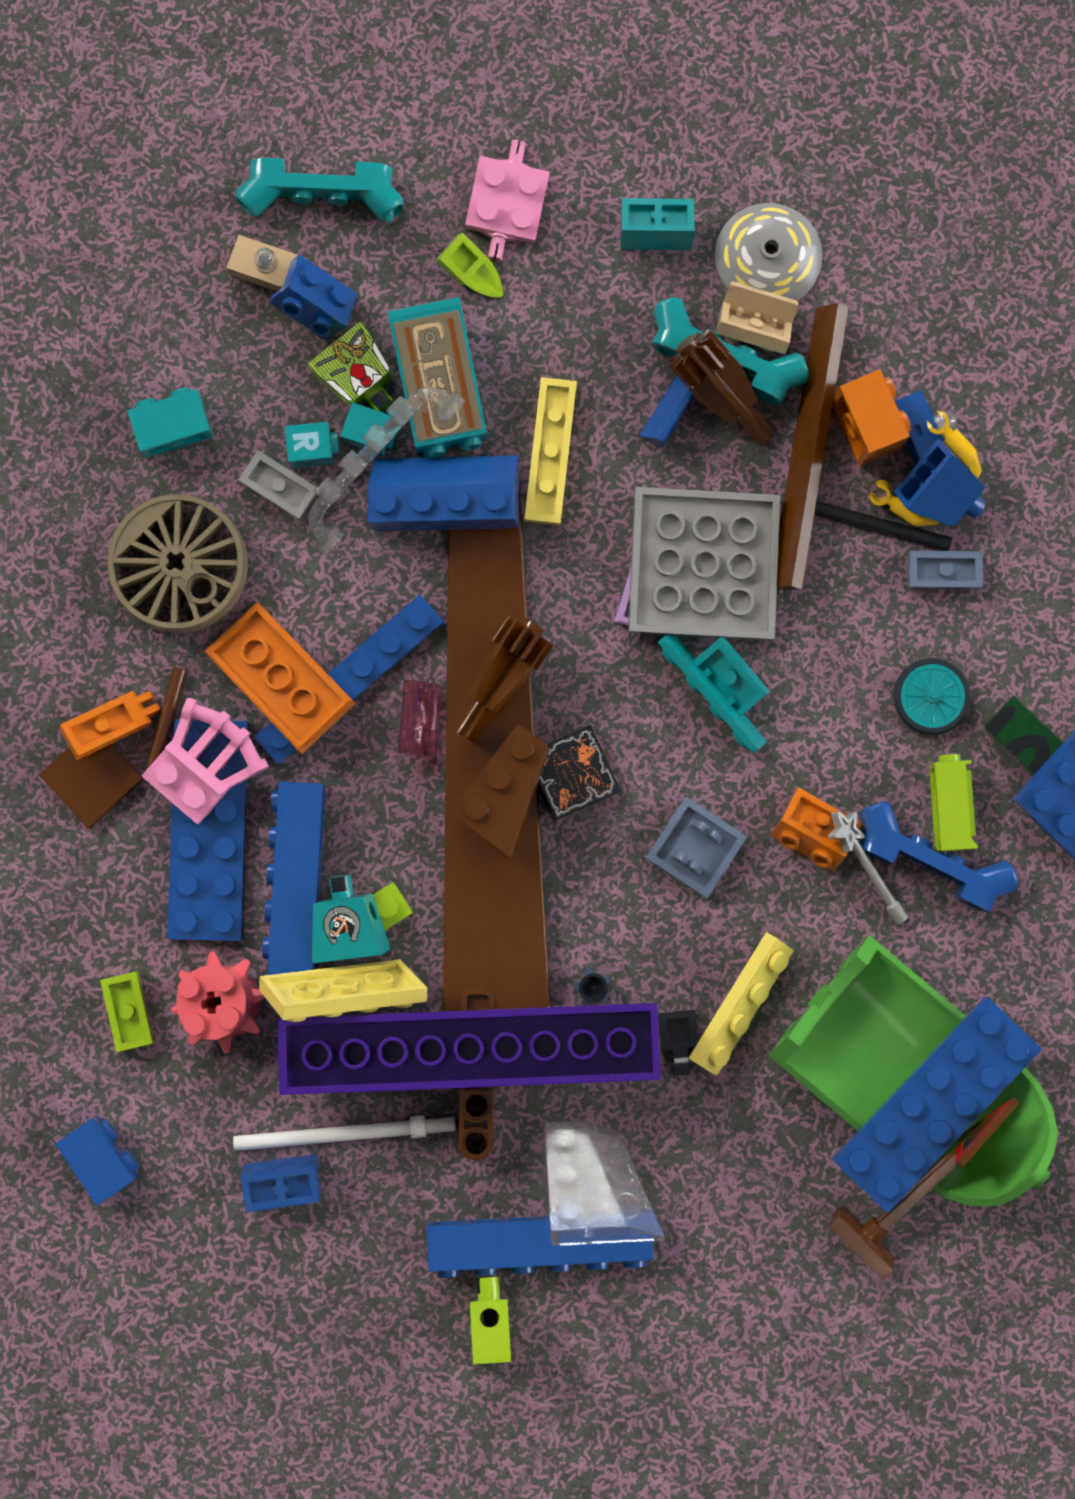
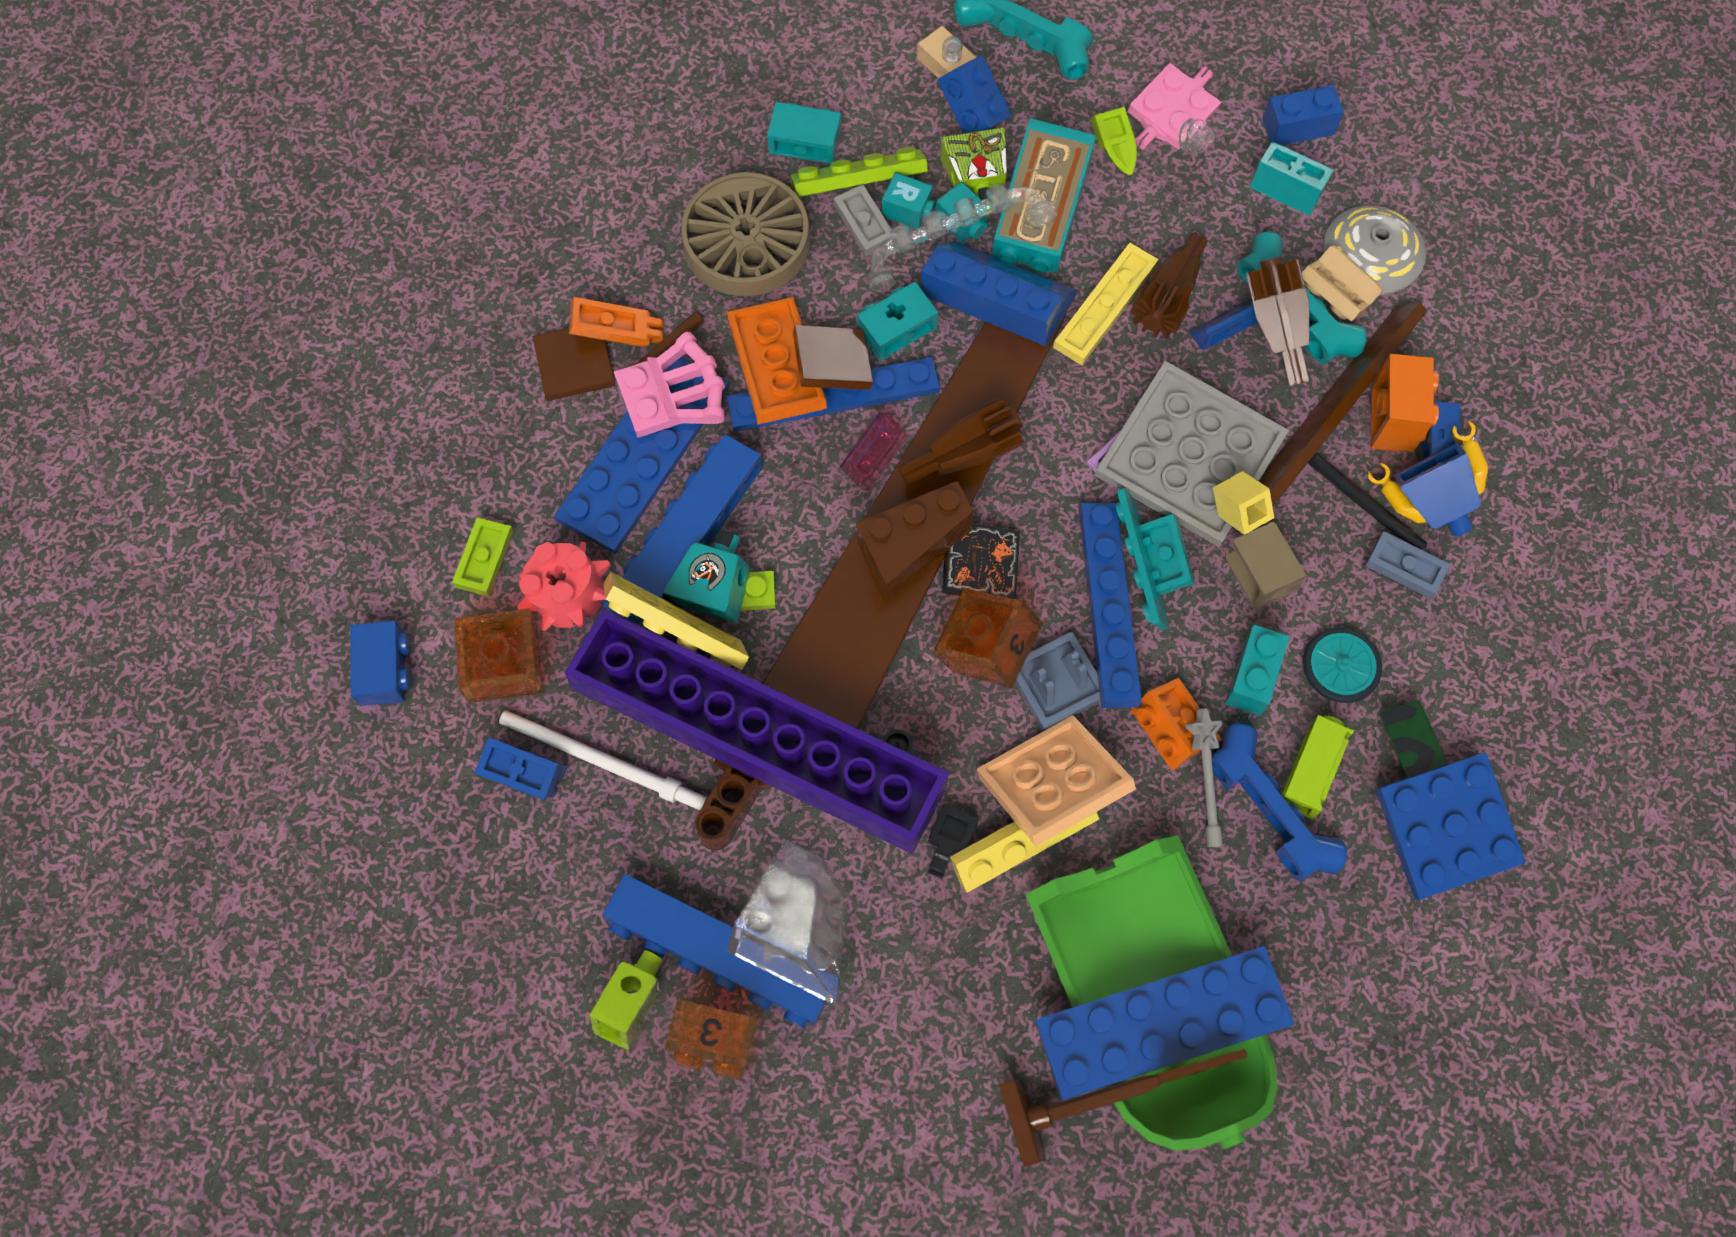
camera: 30 degrees right, 15 degrees down
(201, 1097) = (498, 655): none -> clear orange brick
(246, 438) = (847, 174): none -> lime plate
(333, 652) = (832, 357): none -> tile
(368, 596) = (897, 320): none -> teal brick
(545, 225) = (1195, 136): none -> clear tile
(580, 1320) = (713, 1038): none -> clear orange brick
(603, 424) = (1166, 298): none -> reddish brown piece
(618, 848) = (988, 637): none -> clear orange brick
(635, 149) = (1302, 115): none -> blue brick
(704, 752) = (1109, 606): none -> blue plate
(742, 944) = (1055, 780): none -> light nougat plate
(777, 599) = (1243, 502): none -> light yellow brick
(822, 642) = (1265, 565): none -> dark tan piece
(862, 745) = (1257, 670): none -> teal brick

